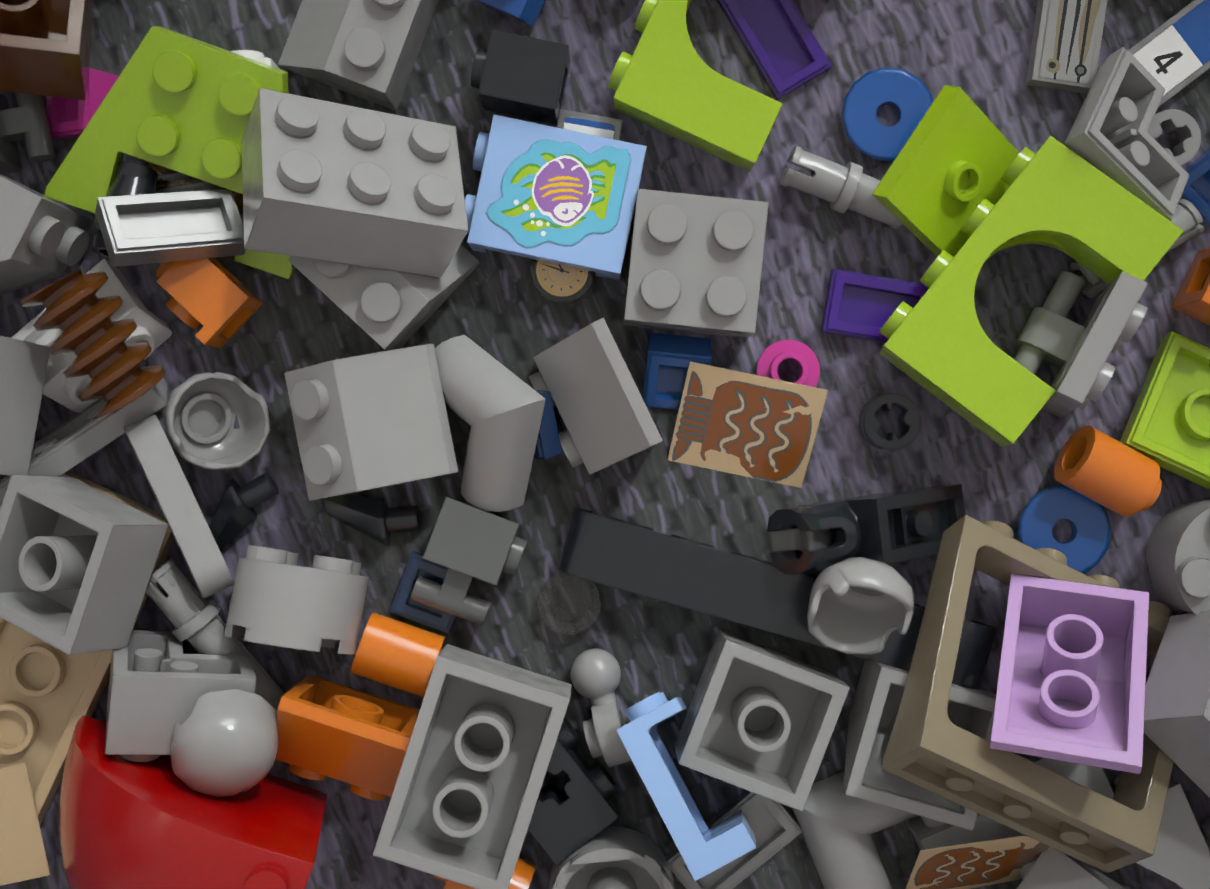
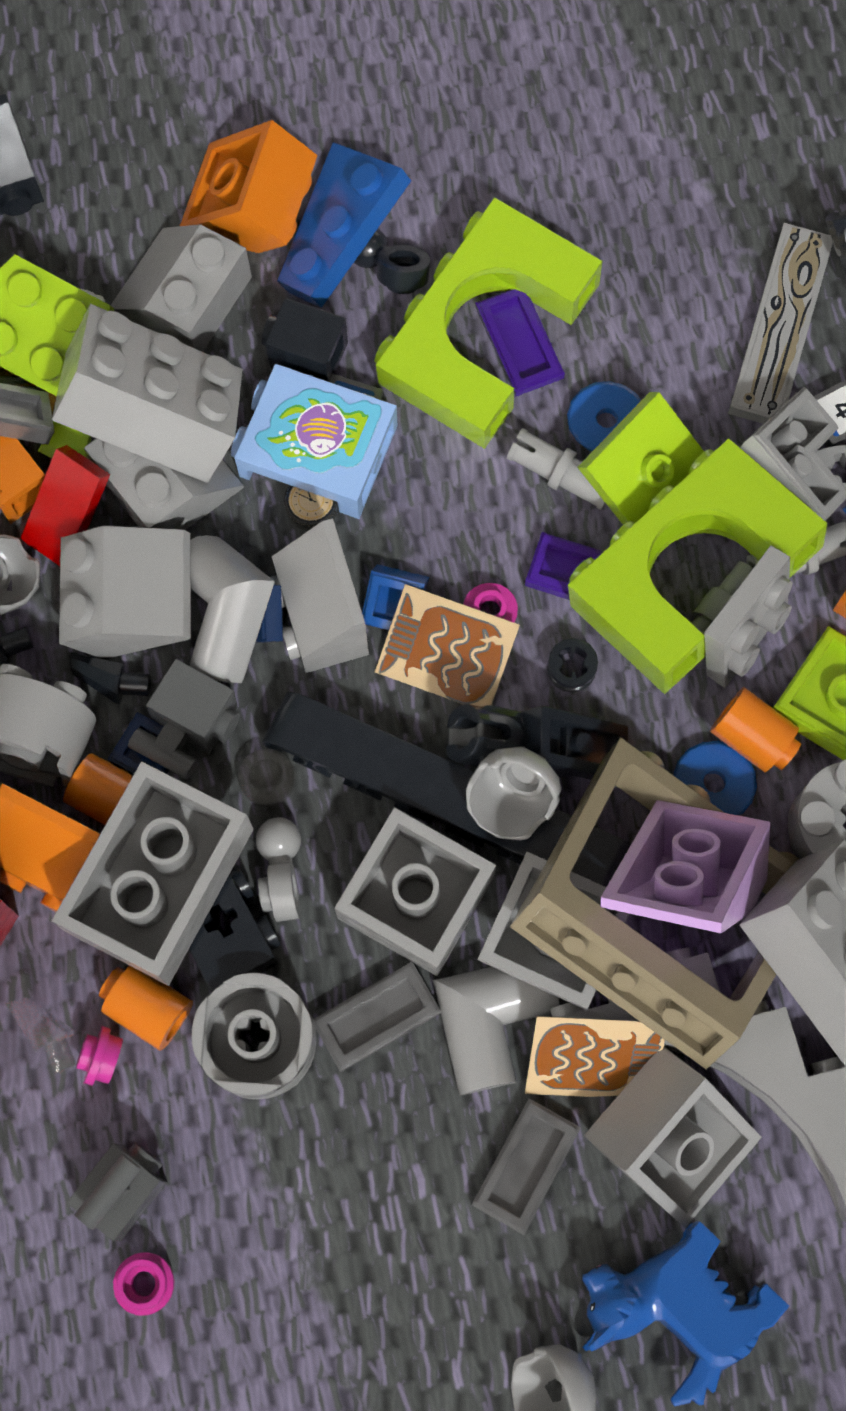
camera: 15 degrees right, 15 degrees down
(279, 325) = (64, 501): none -> red tile
(695, 263) = (421, 507): light grey brick -> none
(699, 846) = (354, 981): light blue panel -> none

